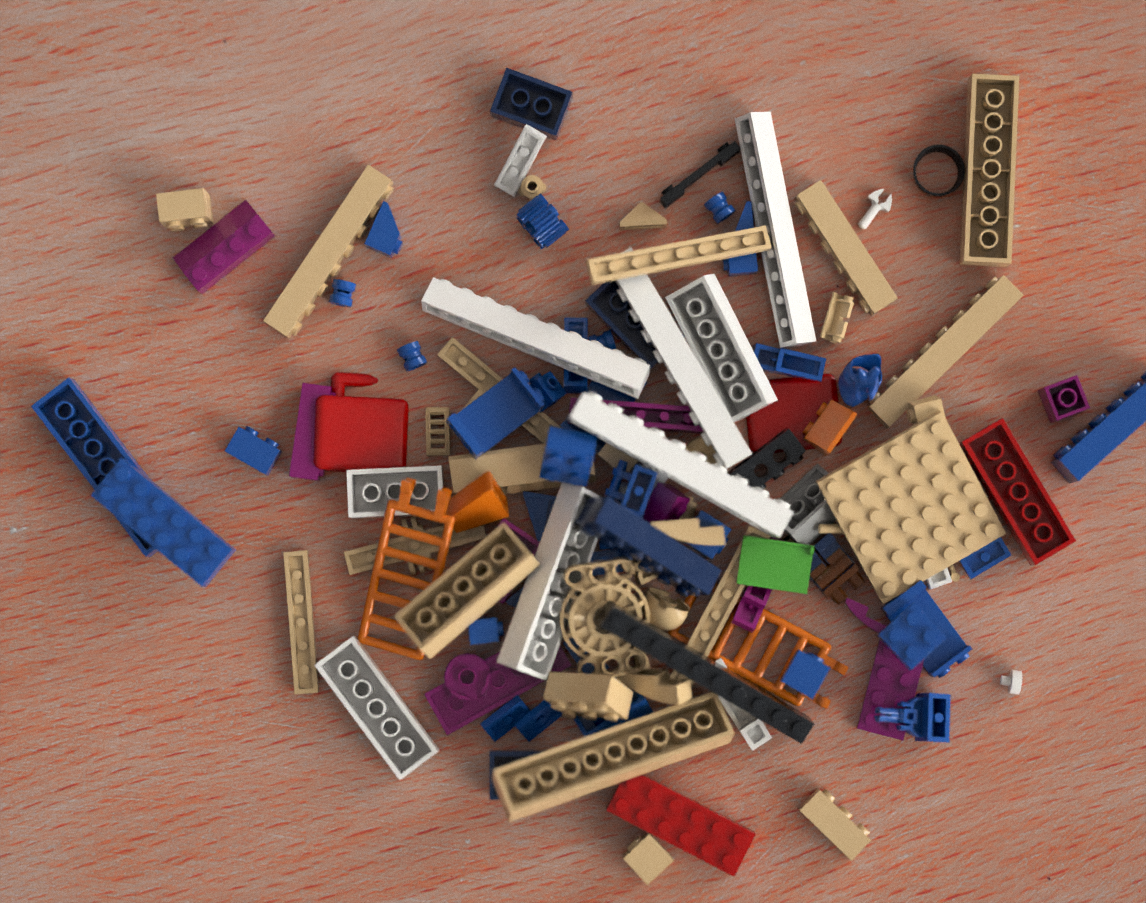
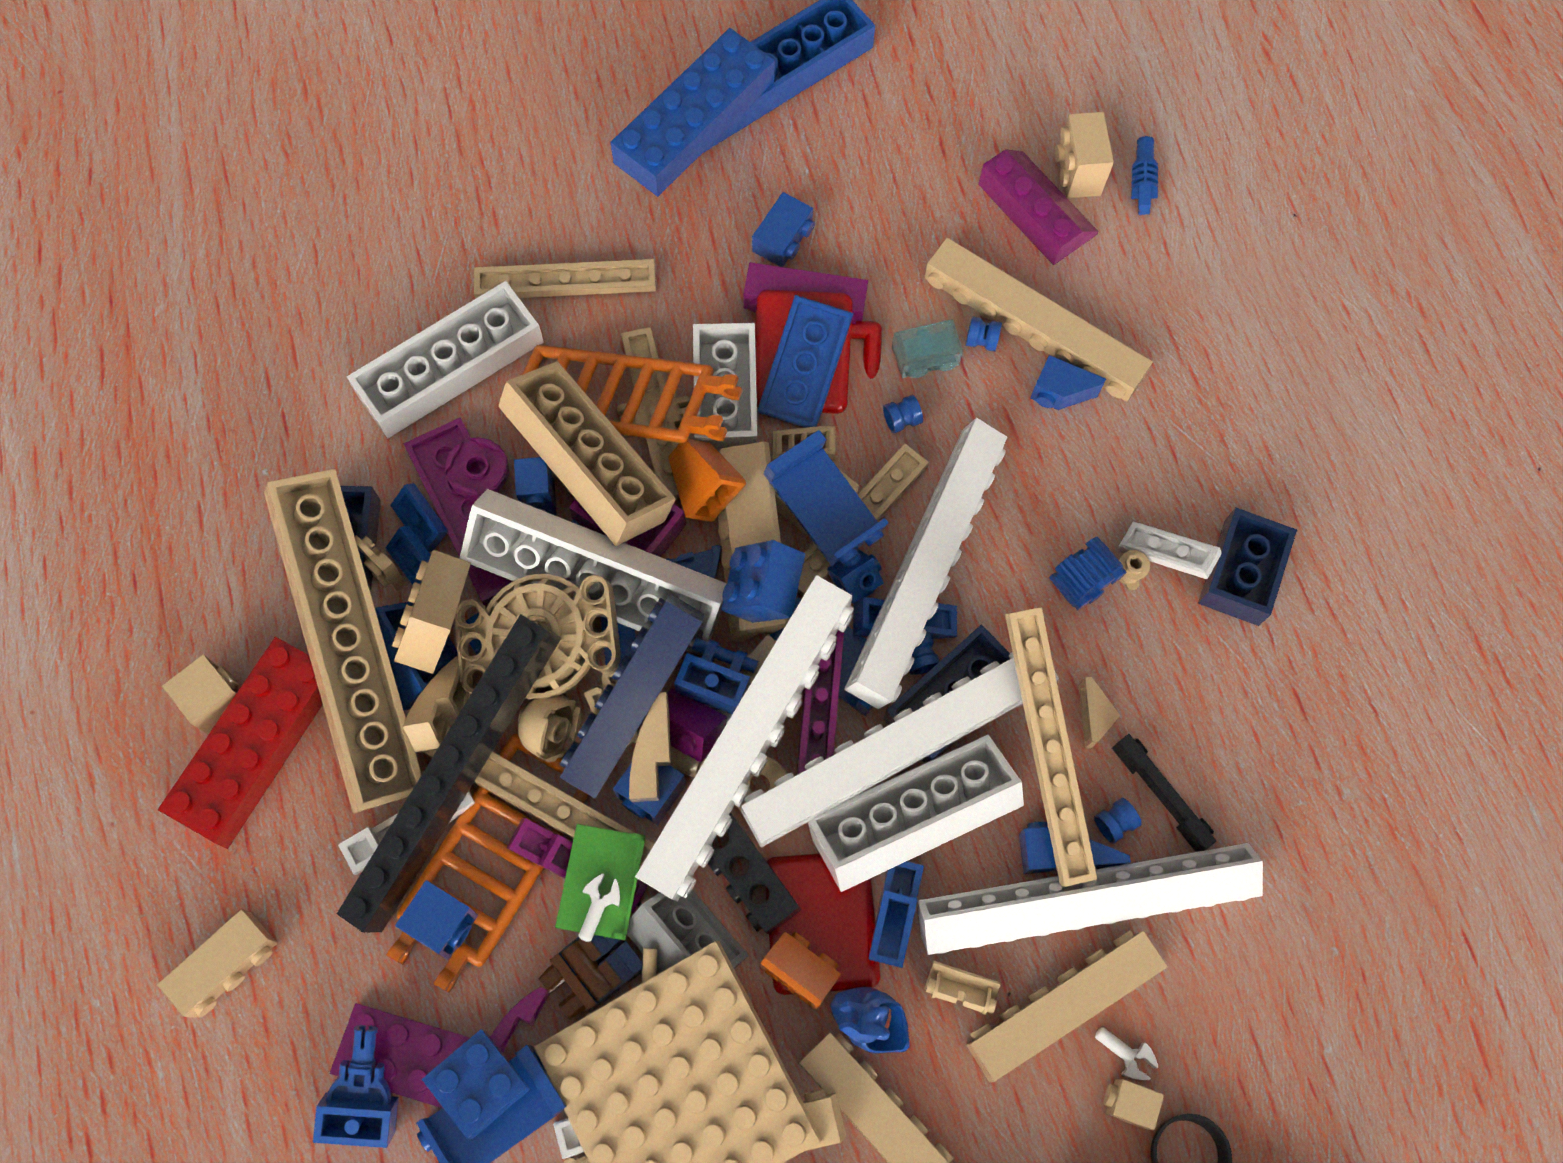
camera: 85 degrees right, 15 degrees down
(194, 160) = (1144, 175): none -> blue hinge
(357, 337) = (927, 349): none -> clear light blue brick
(373, 430) = (805, 362): none -> blue tile
(549, 740) = (380, 565): none -> tan hinge
(792, 565) = (597, 906): none -> white bar
(907, 206) = (1133, 1104): none -> tan brick

